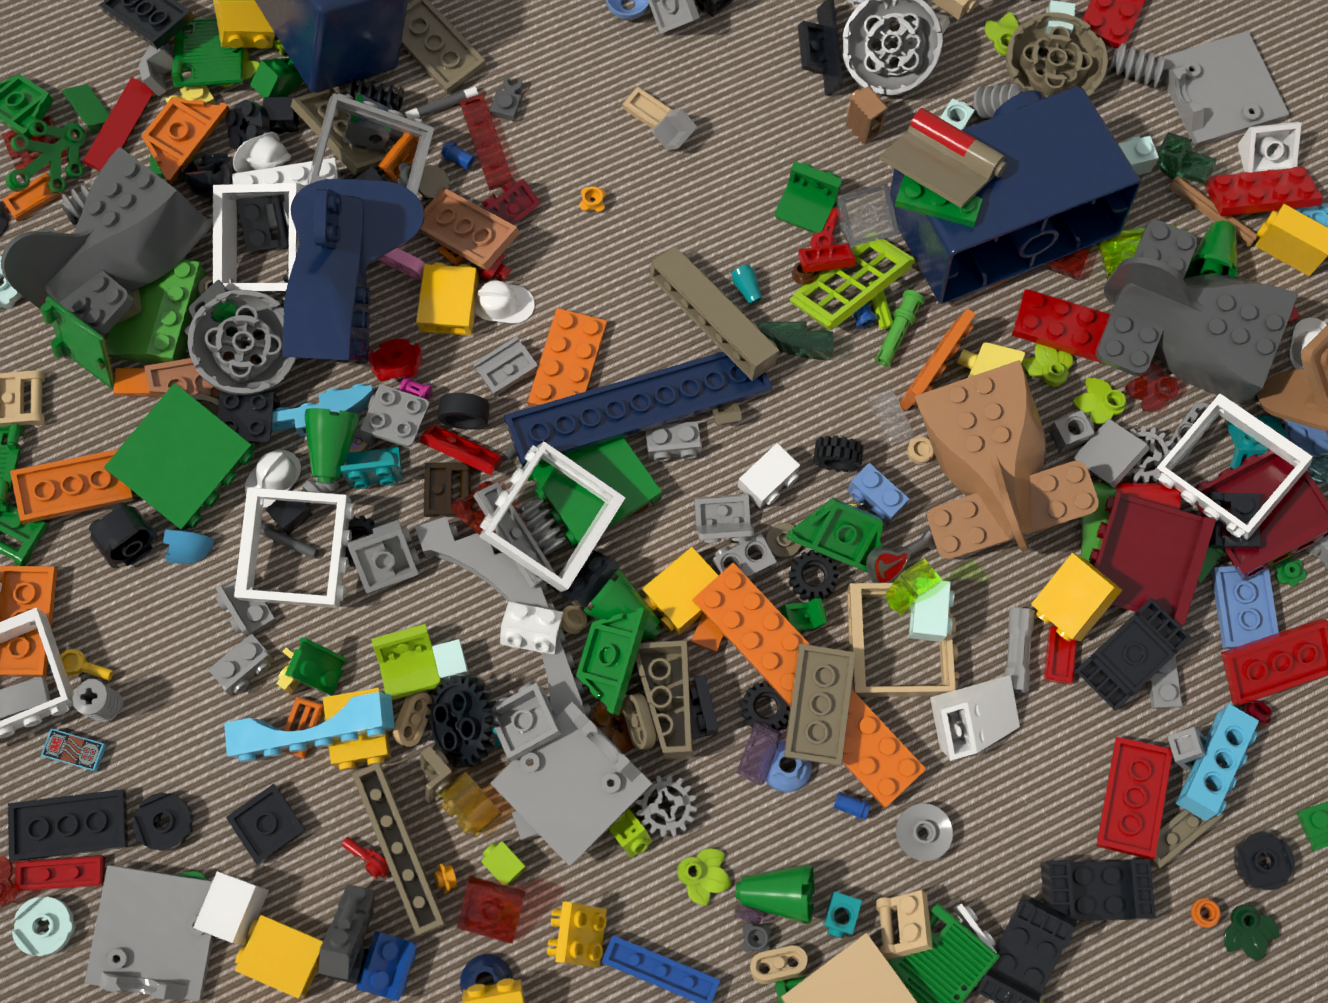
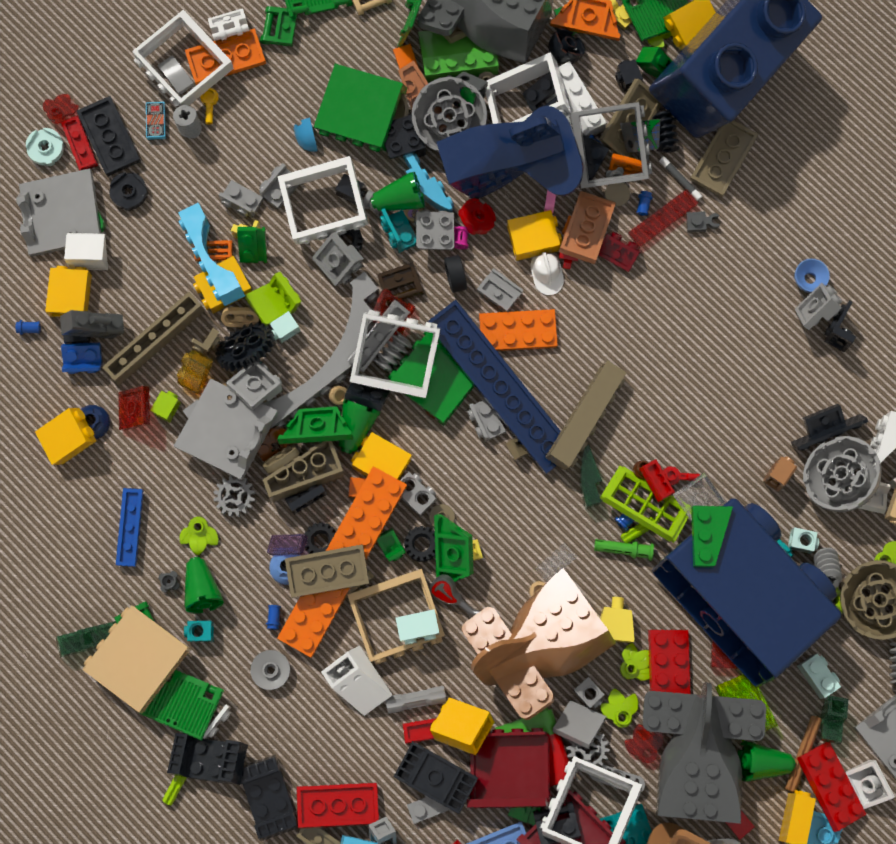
camera: 75 degrees right, 5 degrees up
(67, 487) = (317, 46): orange plate -> none
(122, 535) = (297, 93): black brick -> none
(238, 120) = (610, 57): black plate -> none
(260, 153) = (591, 74): white piece -> none
(266, 824) = (146, 252): black plate -> none
(274, 471) = (373, 170): white piece -> none
(287, 541) = (331, 196): dark grey bar -> none
(376, 864) = (140, 327): red plate -> none
(445, 878) = (146, 373): light orange plate -> none
(461, 449) = (430, 282): red tile -> none
(530, 628) = (319, 368): white bracket -> none
(579, 934) = (134, 468): yellow plate -> none
(592, 192) = (650, 305): light orange plate -> none
(630, 834) = (208, 479): lime bracket -> none
(645, 107) = (730, 322): tan tile -> none
(674, 129) = (718, 342): light grey panel -> none
(723, 518) = (439, 470): light grey bracket -> none
(746, 282) = (620, 432): teal cone -> none
(748, 914) = (181, 570): tile -> none
(769, 476) = (480, 491): white brick -> none
(777, 962) = (156, 601): tan plate -> none
(808, 197) = (700, 454): green bracket -> none
(838, 453) = (512, 533): black tyre -> none
(877, 494) = (493, 570): medium blue brick -> none
(911, 586) = (428, 608): clear neon green bracket -> none
(912, 922) = (206, 677): tan plate -> none
(936, 363) = (613, 584): orange plate -> none
(944, 158) = (736, 529): dark tan door -> none

